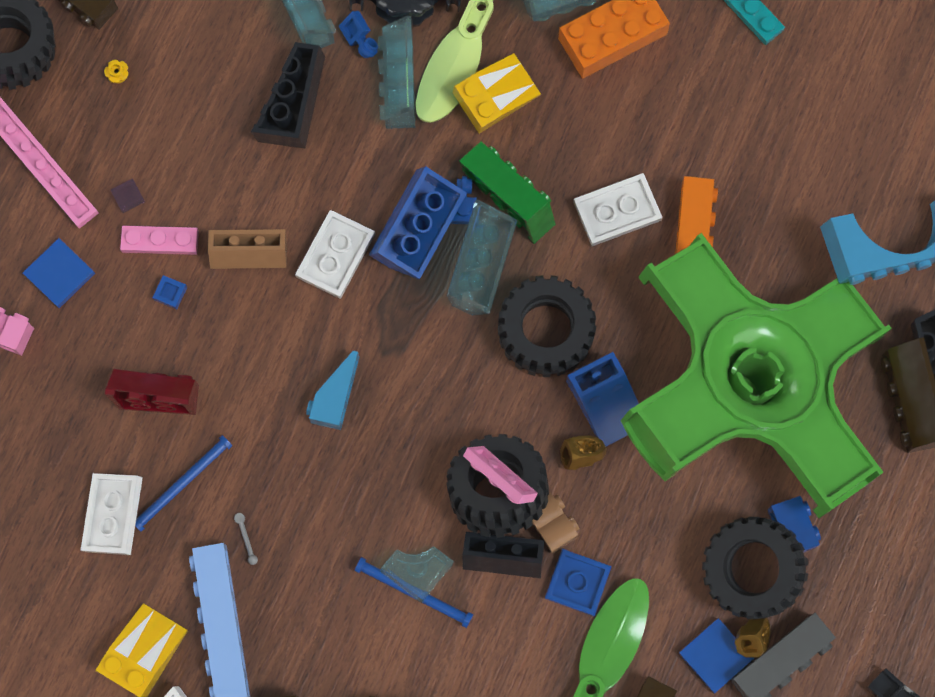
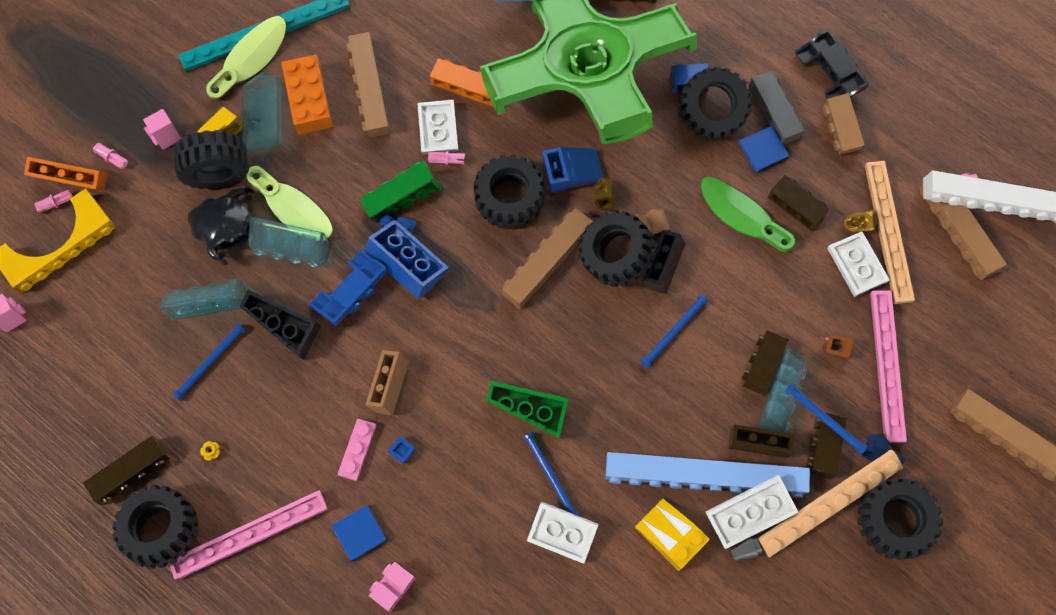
camera: 75 degrees left, 5 degrees down
(127, 195) = (313, 466): clear purple tile -> none
(152, 392) = (478, 476): dark red wedge -> none
(176, 12) = (208, 362): none -> blue bar
(240, 519) = (588, 441): light grey hinge -> none
(260, 434) = (530, 406): none -> green wedge
(333, 397) = (520, 351): dark azure slope -> none
(335, 254) = (410, 323): white plate -> none
(355, 30) = (242, 267): blue plate -> none
(358, 171) = (352, 291): none -> blue bracket
(418, 572) = (661, 323): clear light blue tile -> none
(467, 400) = (546, 258): none -> medium nougat brick
(481, 259) = (449, 220): clear light blue slope -> none
(495, 92) = (325, 184): yellow slope -> none
(500, 475) = (616, 237): bright pink plate -> none
(576, 233) = (445, 157): none -> bright pink axle
(578, 582) = (693, 222): blue tile -> none
(651, 103) = (368, 84): none -> medium nougat brick
(753, 638) = (760, 121): pearl gold rock -> none

